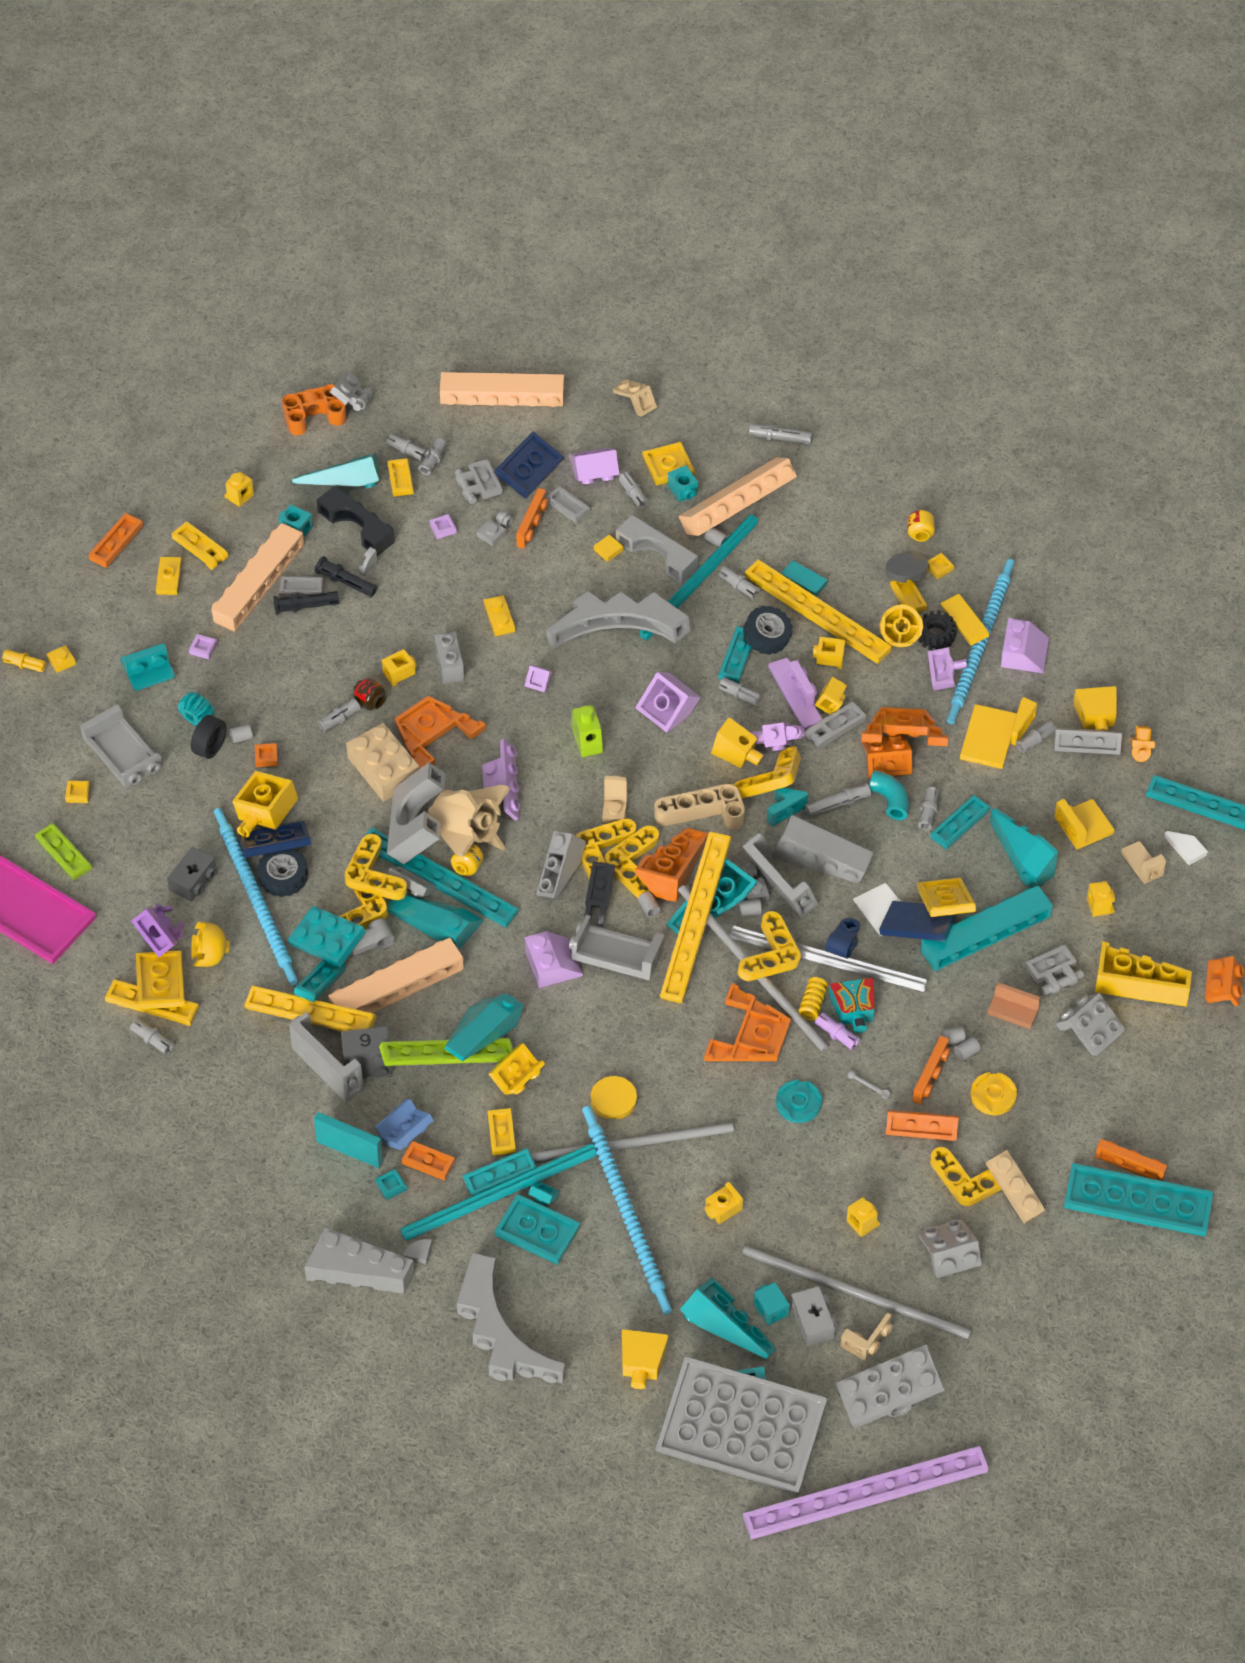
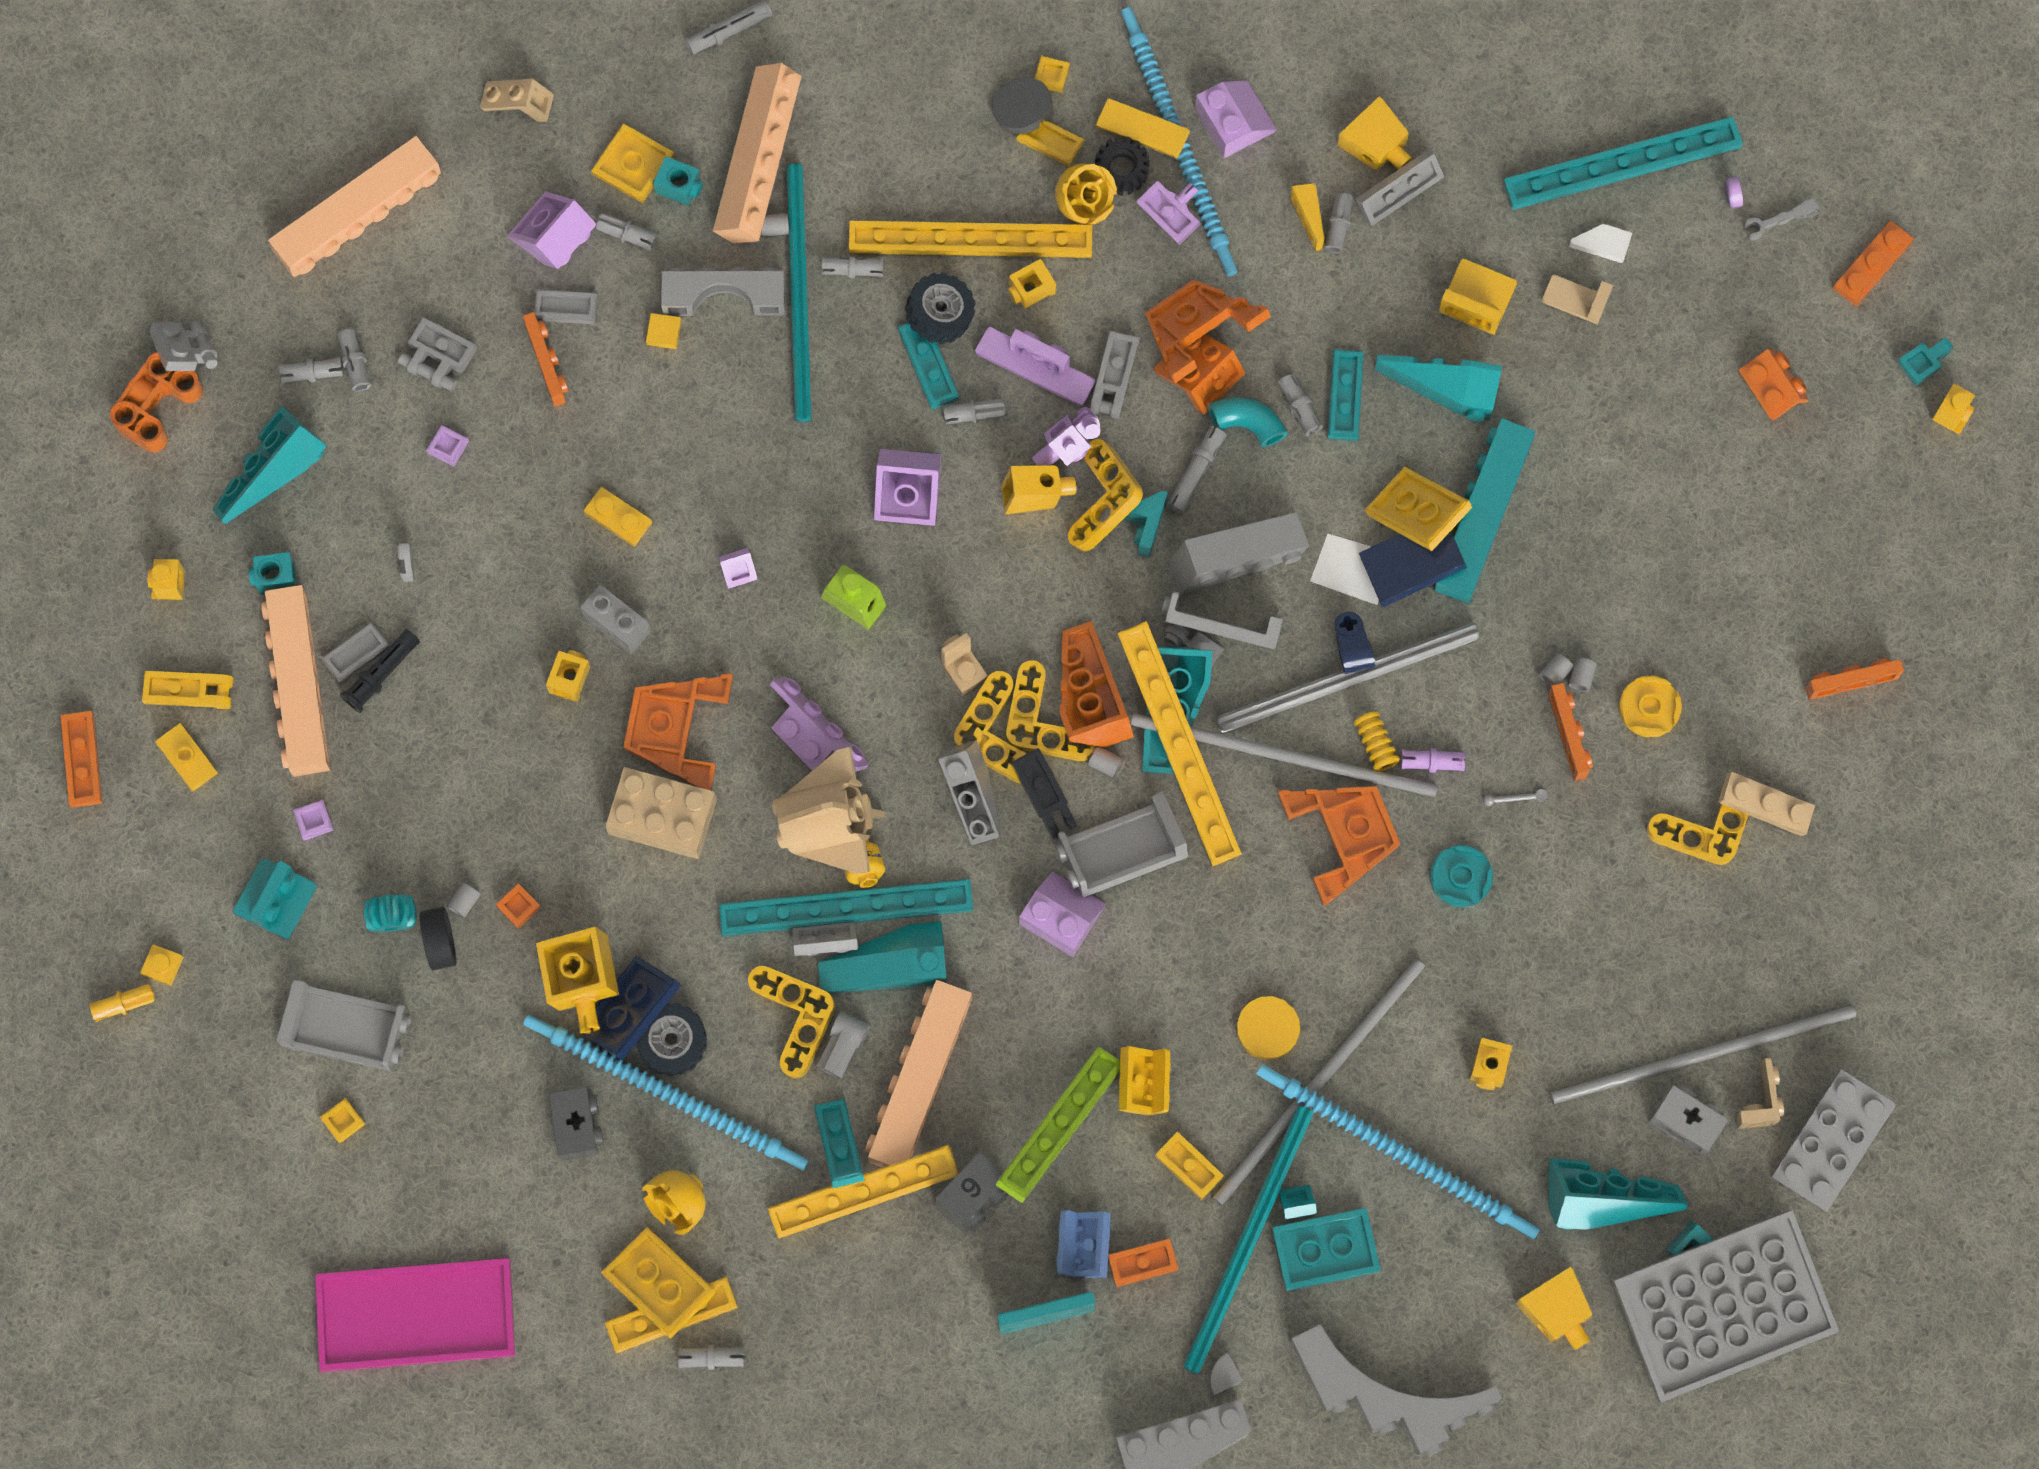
camera: 40 degrees left, 20 degrees up
(63, 851) = (397, 1209): lime tile -> none
(158, 929) = (609, 1228): medium lavender piece -> none
(326, 936) = (797, 1083): teal plate -> none
(337, 573) = (384, 603): black pin -> none
(338, 506) = (305, 513): black arch -> none
(342, 1079) = (929, 1241): light grey panel -> none
(349, 708) = (553, 790): light grey pin -> none
(367, 875) = (777, 973): yellow beam -> none
(369, 694) = (564, 735): dark brown head -> none
(390, 1184) = (1125, 1321): teal tile -> none
(400, 477) = (341, 417): yellow plate -> none
(407, 832) = (735, 842): light grey arch -> none
(484, 1024) = (1063, 1057): teal wedge -> none
(493, 532) = (511, 409): light grey plate -> none
(498, 1171) = (1229, 1216): teal tile -> none
(529, 465) = (478, 288): dark blue tile -> none
(620, 611) = (757, 410): light grey arch -> none
(701, 804) = (1058, 599): tan beam -> none
(750, 907) = (1219, 679): light grey hinge -> none
(771, 1303) = (1634, 1140): teal brick -> none
(778, 954) = (1300, 713): yellow beam -> none
(804, 578) = (917, 205): teal tile -> none
(831, 696) = (1082, 341): yellow brick -> none
(853, 1002) = (1424, 713): torso -> none
(865, 1214) = (1644, 964): yellow brick -> none
(865, 1492) = (1901, 1277): lavender plate -> none
(921, 525) = (991, 36): yellow head -> none
(922, 1125) = (1613, 805): orange plate -> none
(951, 1247) = (1756, 925): light grey bracket -> none
(988, 736) = (1287, 260): yellow tile -> none
(1014, 1005) = (1589, 586): nougat panel -> none
(1051, 964) = (1585, 502): light grey plate -> none
(1092, 1023) = (1682, 542): light grey bracket -> none
(1100, 898) = (1576, 378): yellow brick -> none
(1138, 1199) = (1895, 718): teal plate -> none
(1141, 977) = (1687, 451): yellow wedge -> none
(1142, 743) = (1460, 146): light orange hips -> none

